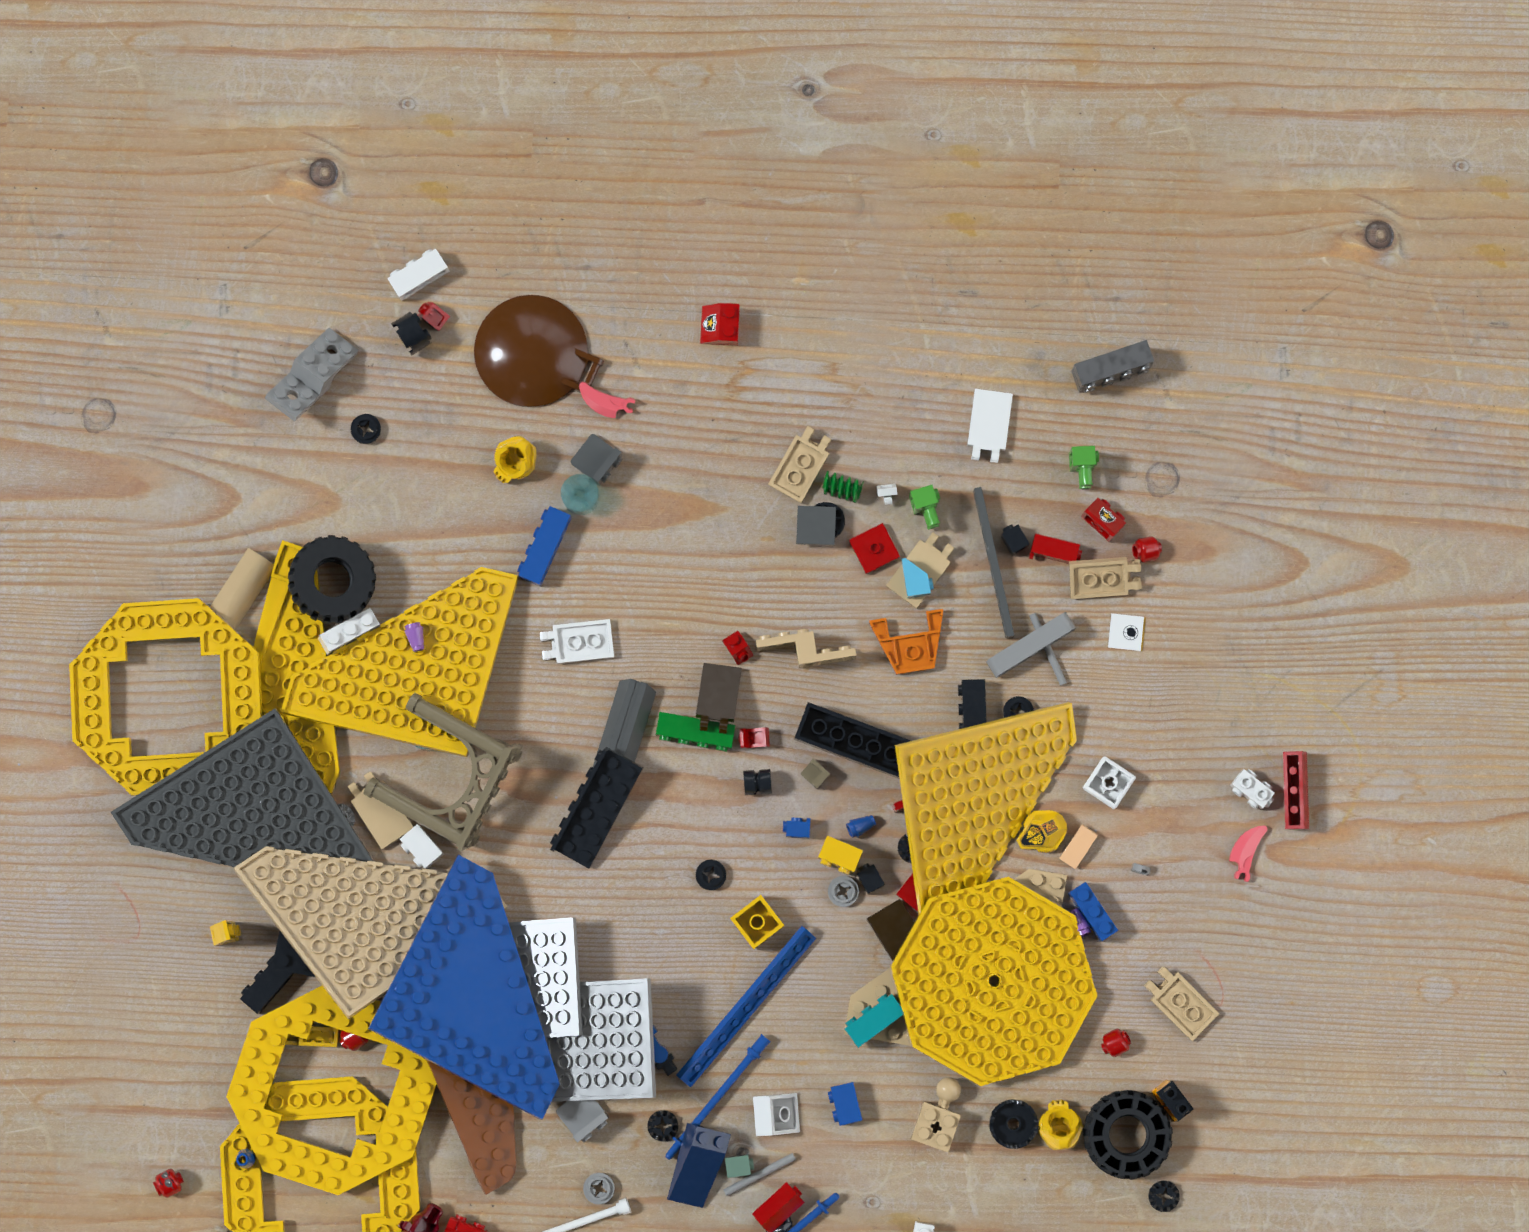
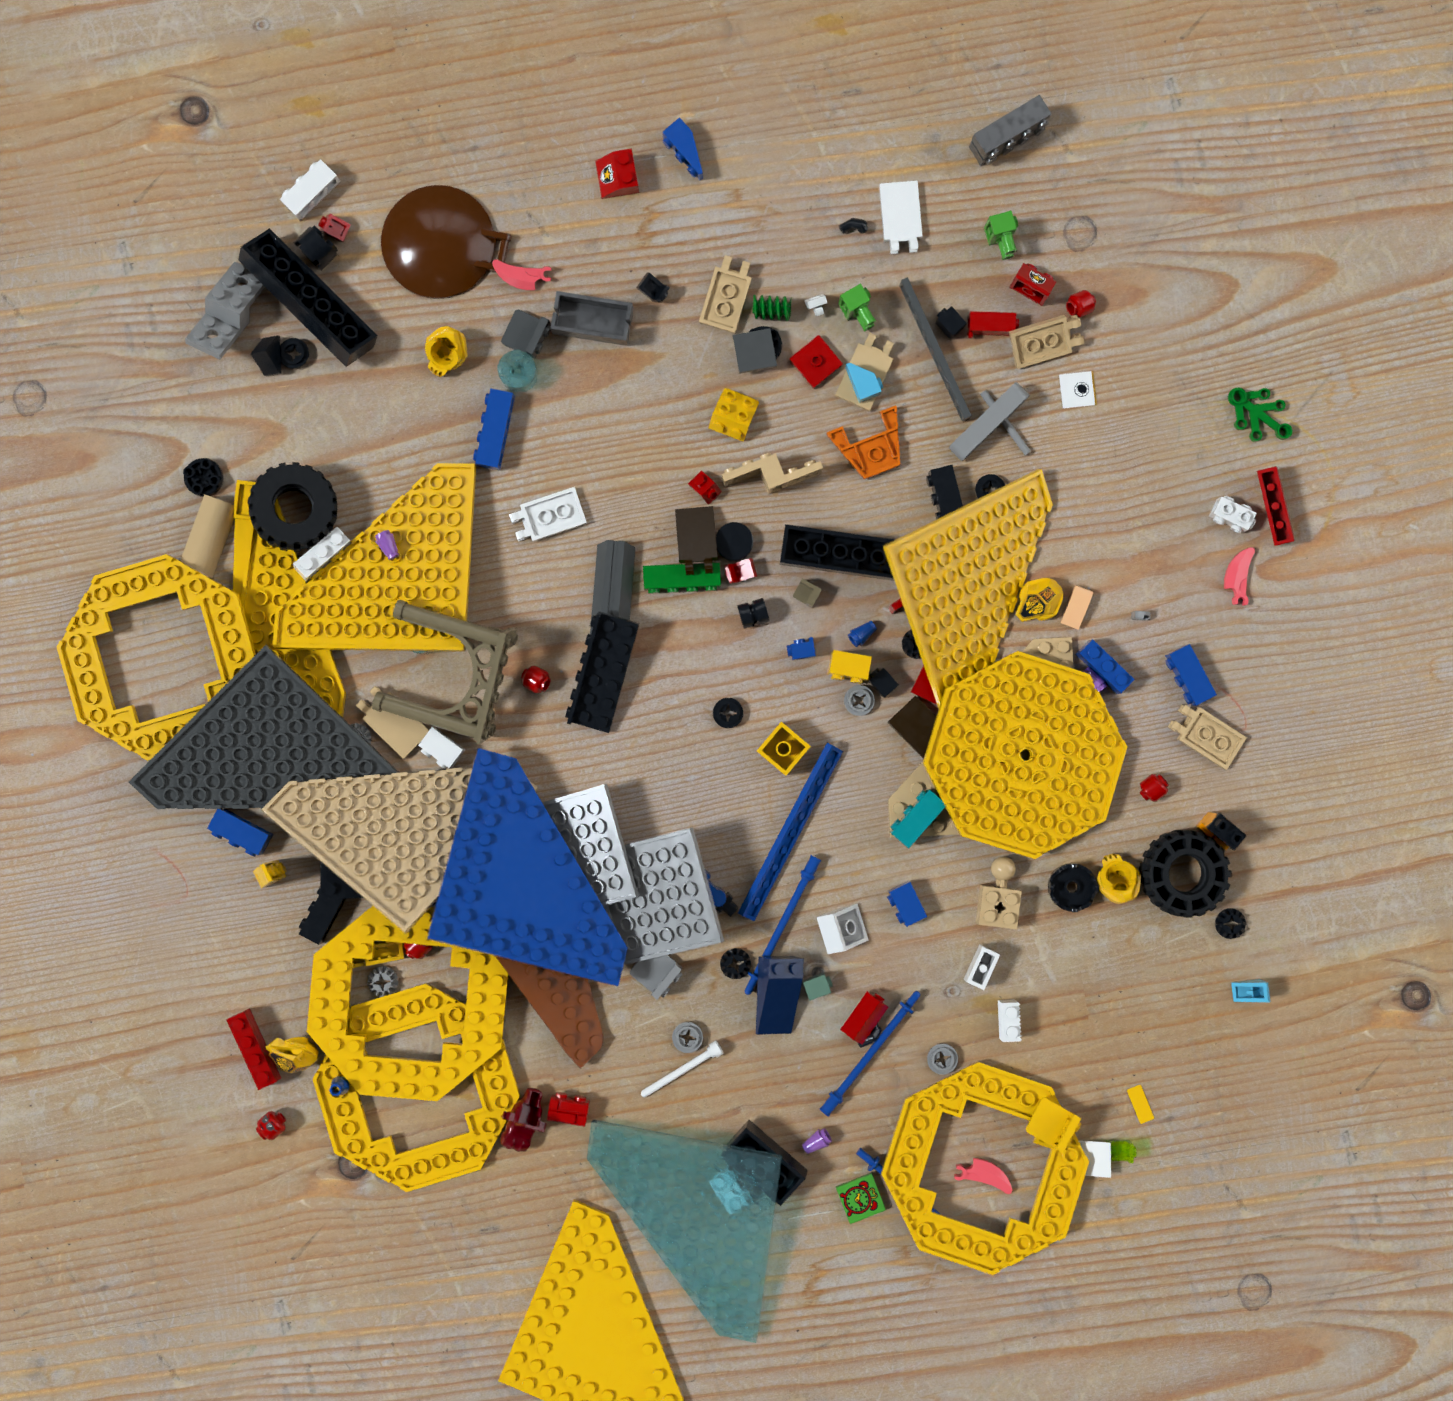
camera: 15 degrees left, 5 degrees up
(169, 1103) = (253, 1049): none -> red brick
(205, 886) = (239, 832): none -> blue brick
(207, 1115) = (293, 1053): none -> yellow helmet
(249, 530) = (203, 477): none -> black tile
(317, 1059) = (387, 974): none -> light grey gear
(340, 426) = (268, 355): none -> black slope
(392, 379) = (307, 297): none -> black brick
(529, 800) = (536, 679): none -> red head
(664, 459) = (592, 318): none -> flat silver piece
(730, 442) = (653, 288): none -> black bracket
(754, 707) = (734, 541): none -> black tile
(759, 1174) = (838, 989): light grey piece -> none
(781, 582) = (733, 414): none -> yellow bracket
(791, 307) = (681, 140): none -> blue slope
(905, 1183) = (981, 967): none -> white brick
(941, 421) = (855, 223): none -> black arm
(1121, 779) = (1104, 532): white brick -> none
(1175, 939) = (1190, 675): none -> blue brick
(1299, 692) = (1256, 412): none -> green plant

